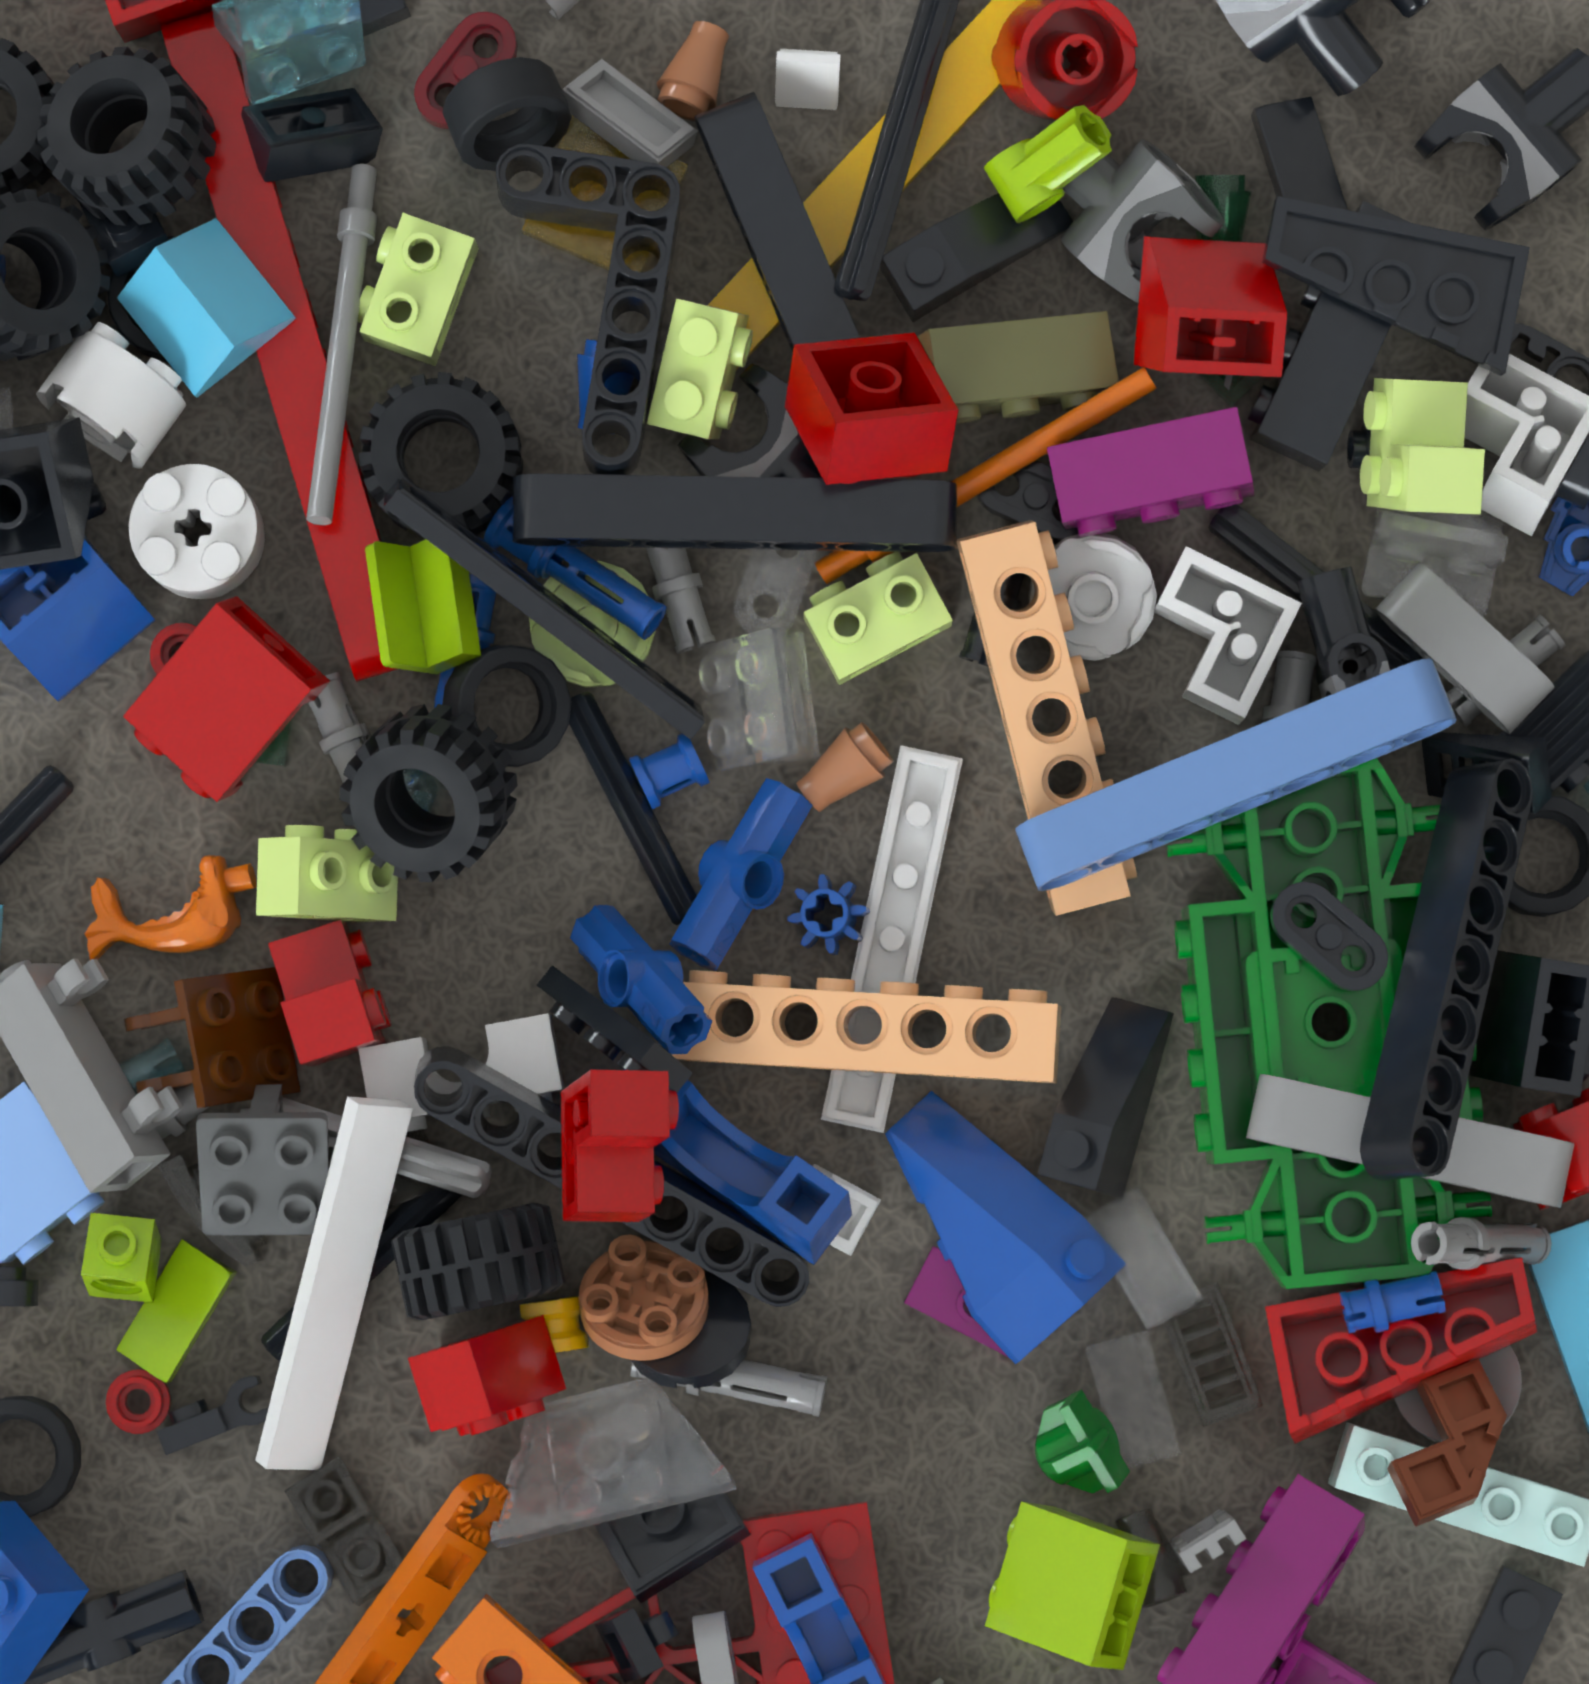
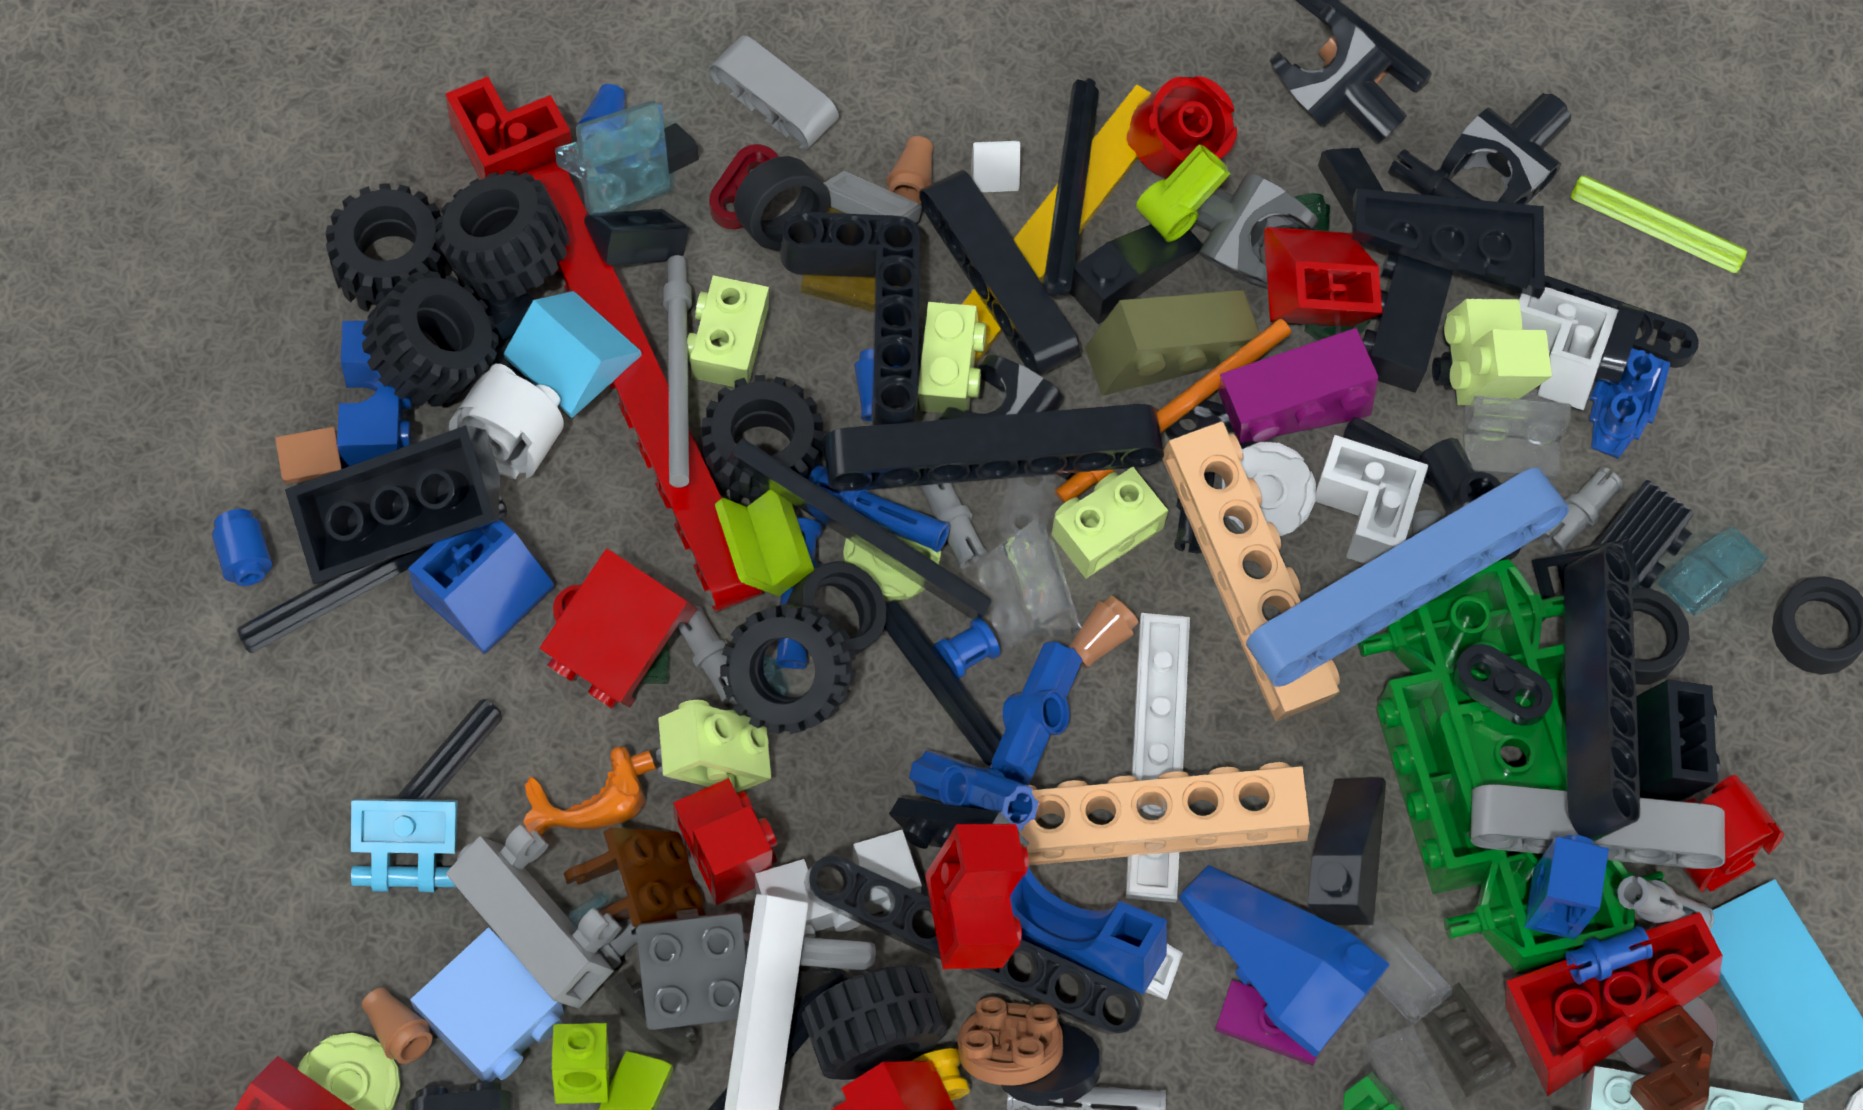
camera: 20 degrees left, 20 degrees down
(171, 504) = (574, 489): white brick -> none
(842, 926) = (1107, 752): blue gear -> none
(870, 408) = (1086, 359): red brick -> none
(1348, 1223) = (1566, 886): none -> blue brick
(1402, 171) = (1426, 179): none -> black pin
(1464, 648) = (1591, 500): light grey beam -> none

